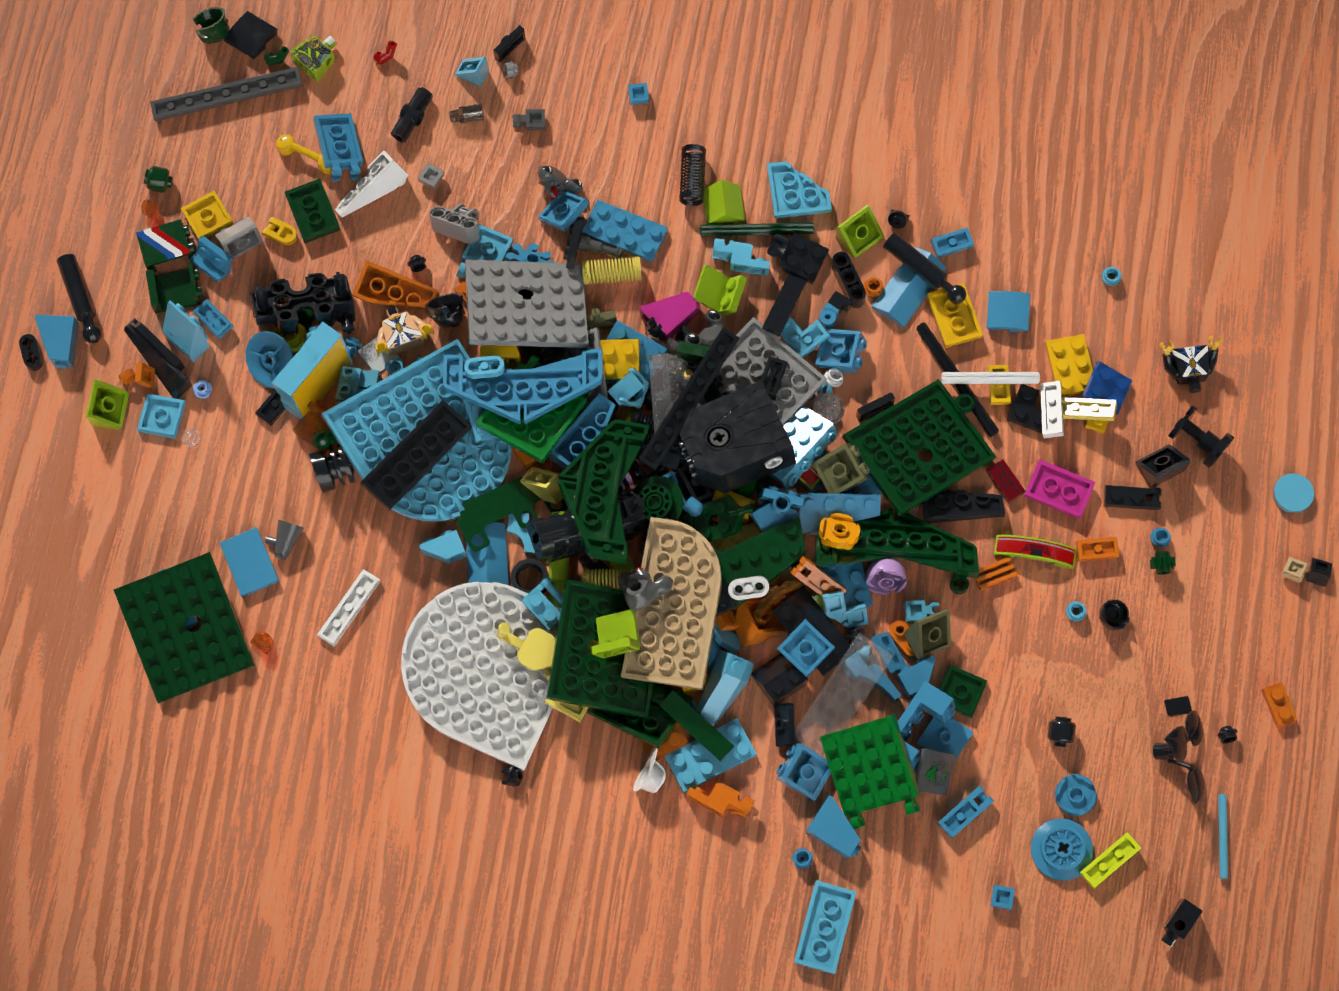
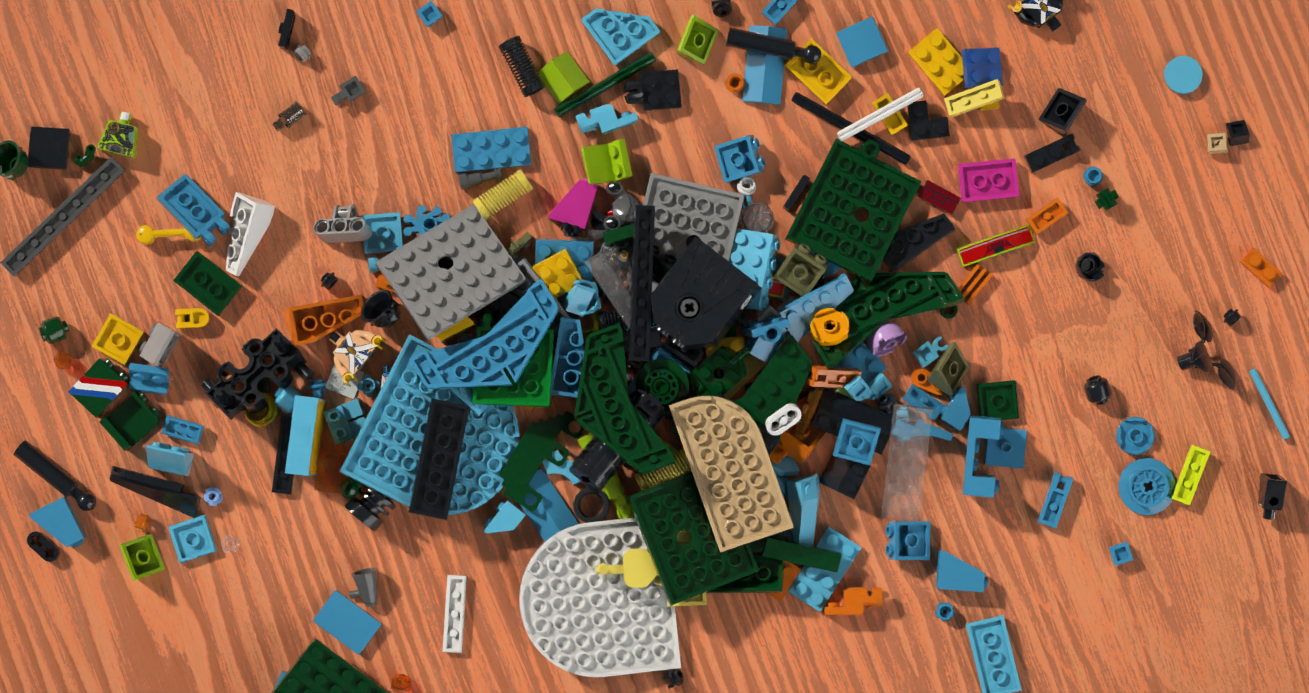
camera: 35 degrees left, 15 degrees up
(144, 375) = (156, 512): orange plate -> none
(259, 353) = (258, 441): dark azure piece -> none
(382, 58) = (184, 98): red arm -> none
(411, 114) = (240, 145): black piece -> none
(431, 176) = (293, 193): light grey plate -> none
(473, 70) = (268, 72): medium azure slope -> none
(484, 367) = (452, 351): medium azure plate -> none
(541, 606) = (616, 526): medium azure plate -> none
(543, 484) = (556, 419): light yellow slope -> none
(556, 181) = (405, 138): dark grey head -> none
(563, 211) = (428, 162): dark azure plate -> none
(573, 242) = (456, 189): black plate -> none
(616, 634) = (698, 520): lime bracket -> none
(640, 590) = (697, 474): dark grey head -> none
(651, 776) = (786, 614): white piece -> none
(693, 507) = (696, 373): dark azure piece -> none
(777, 361) = (695, 203): black tile -> none
(784, 304) = (669, 144): black tile -> none
(784, 725) = (871, 511): black plate -> none
(804, 341) = (700, 169): medium azure plate -> none
(833, 309) = (711, 130): leg -> none
(848, 271) = (706, 80): black beam -> none
(870, 768) = (963, 512): green plate -> none
(934, 771) = (1014, 484): dark grey slope -> none
(1052, 409) = (947, 114): white plate -> none
(1080, 607) = (1062, 277): medium azure plate -> none
(1177, 705) = (1179, 313): black sticker -> none
(1207, 441) = (1091, 71): black piece -> none

